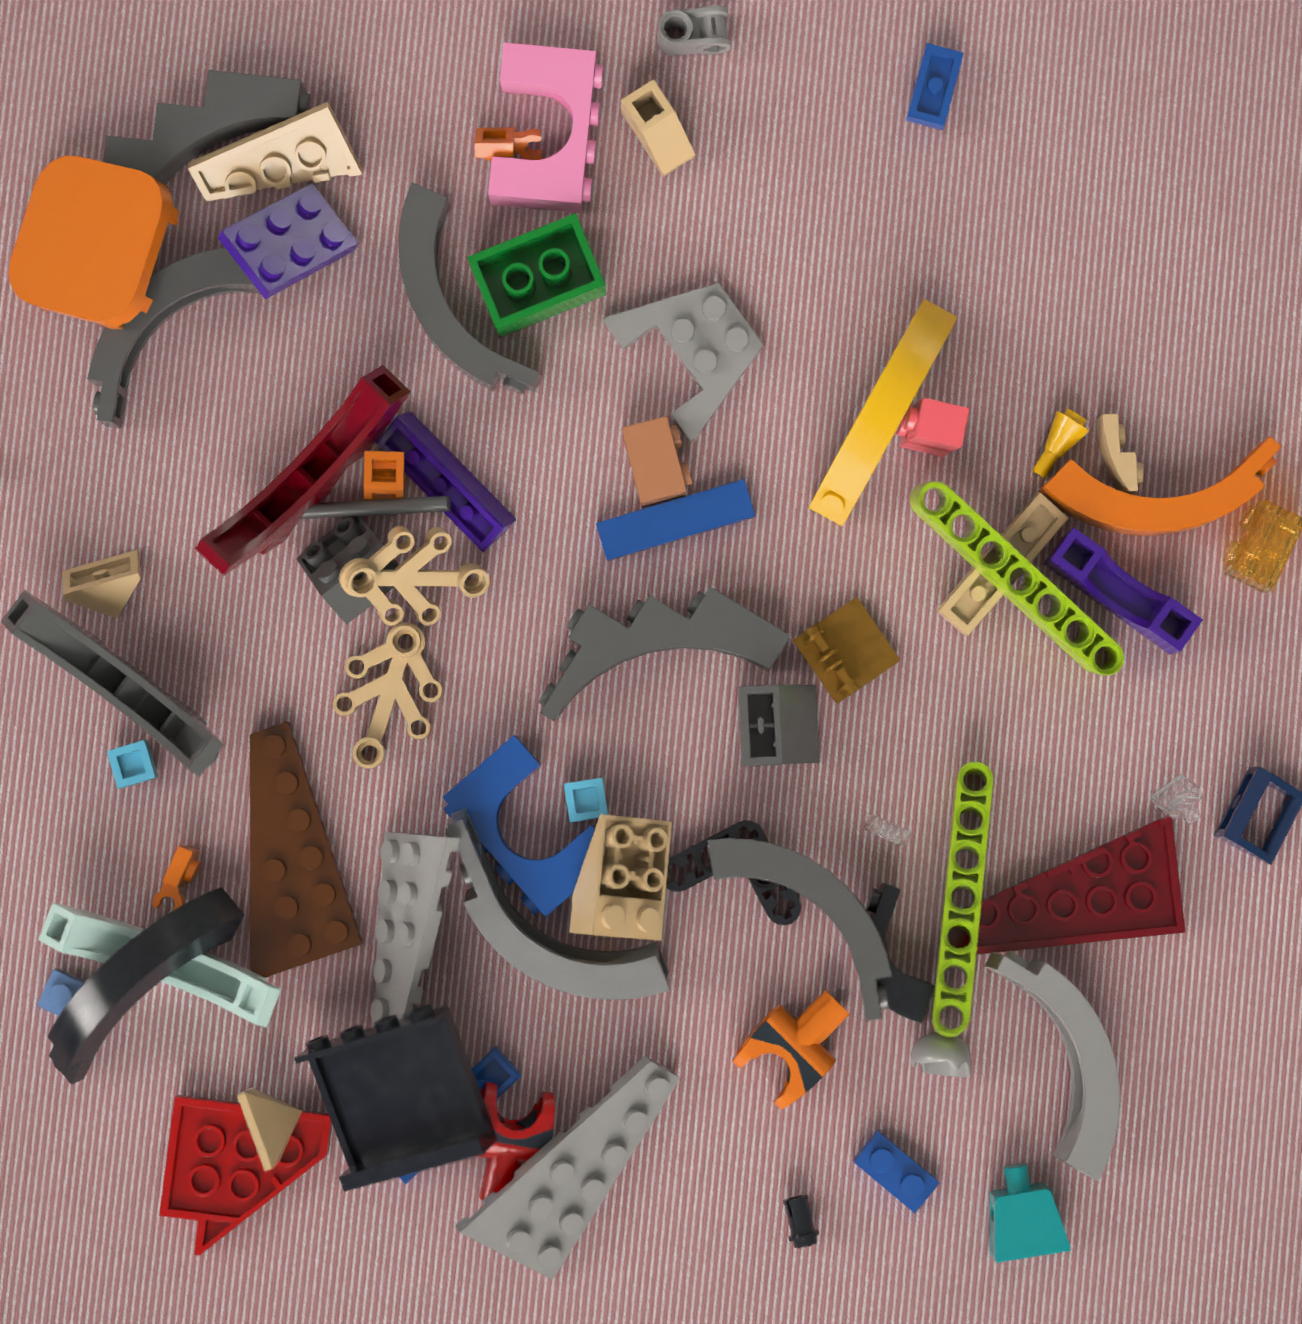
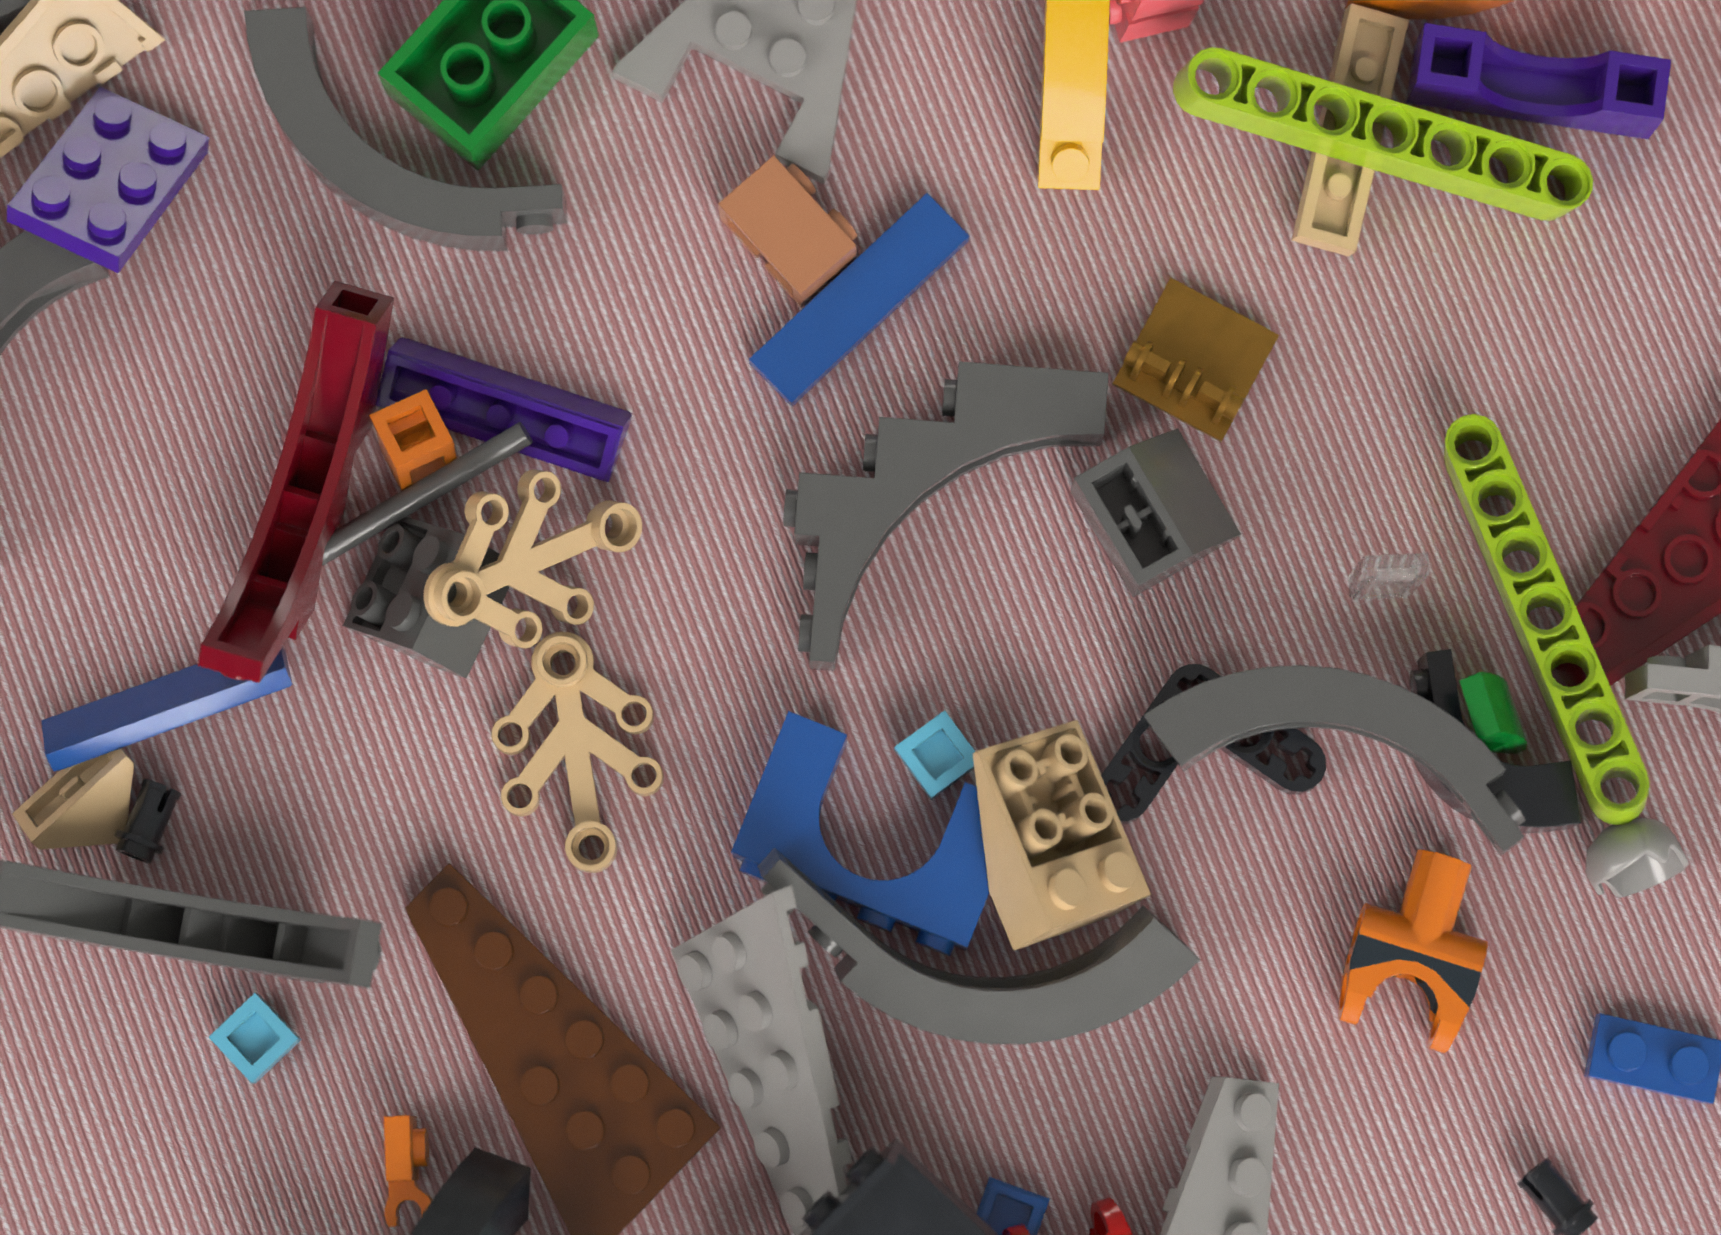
camera: 30 degrees left, 5 degrees down
(133, 614) = (147, 822): none -> black pin
(159, 552) = (151, 711): none -> blue tile
(904, 937) = (1493, 713): none -> green slope

